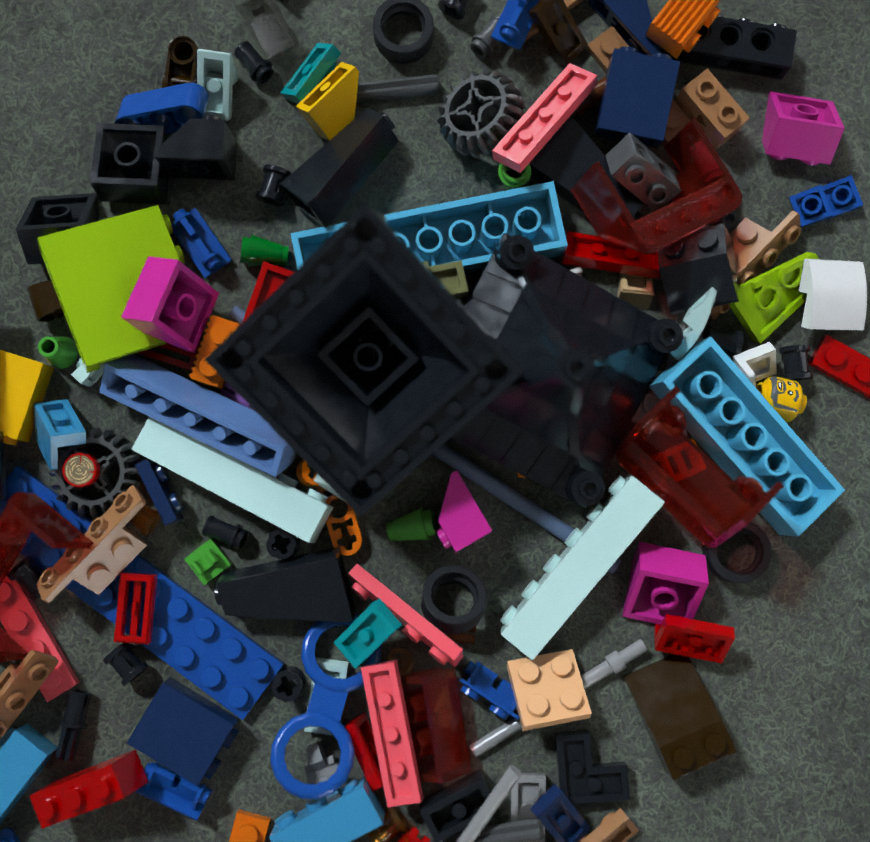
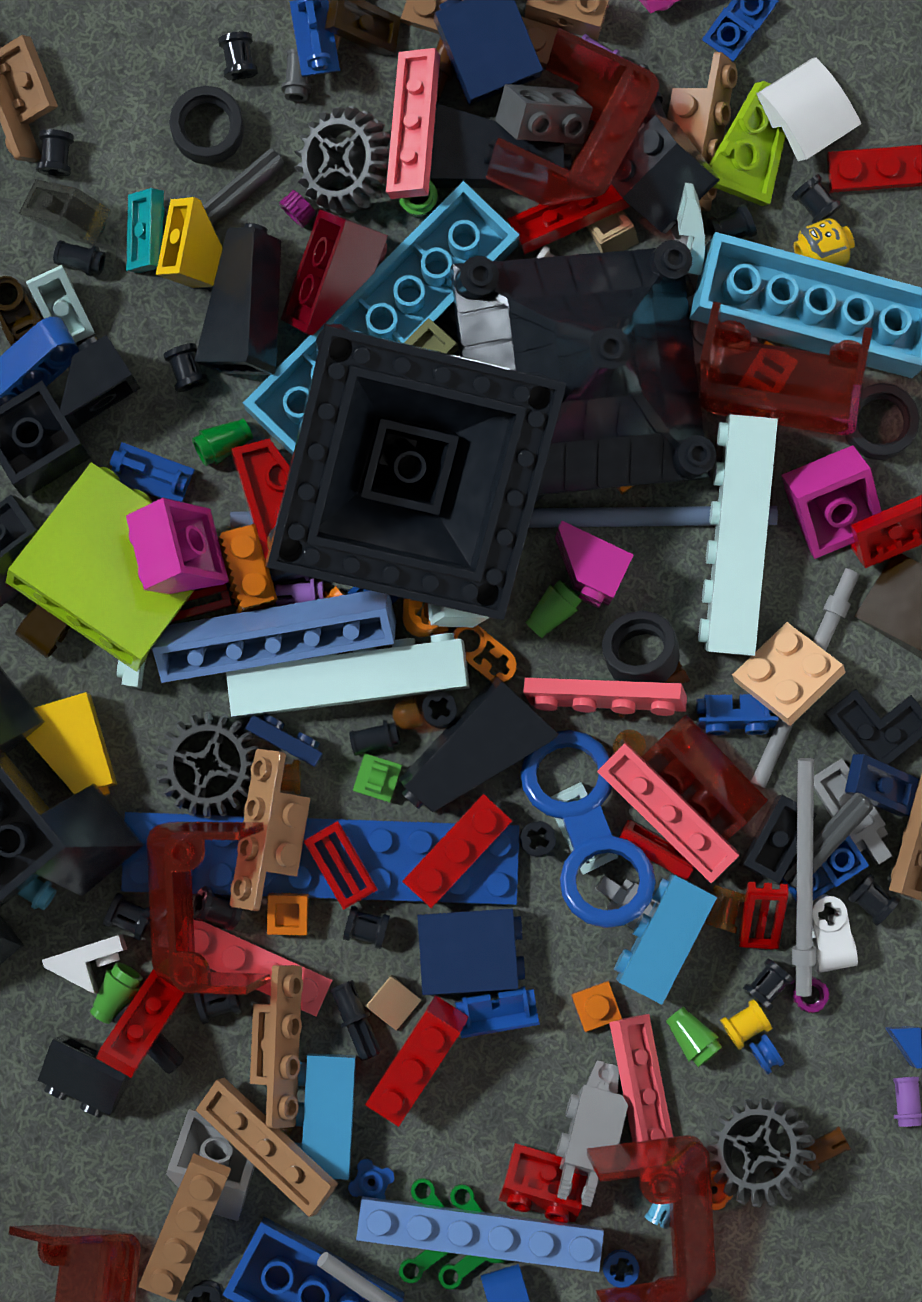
camera: 35 degrees left, 0 degrees up
(56, 427) = (140, 749): dark azure panel -> none
(58, 351) = (97, 678): bright green cone -> none
(77, 615) = (287, 914): none -> orange plate
(81, 470) = (198, 767): tile -> none
(108, 729) = (393, 1002): none -> tan slope
(224, 654) = (457, 851): none -> red plate
(259, 531) = (407, 714): none -> clear orange hinge
(367, 633) = (581, 734): teal plate -> none
(422, 182) = (333, 267): none -> dark red slope
(426, 127) = (297, 208): none -> magenta axle
(757, 362) = (778, 226): white bracket -> none

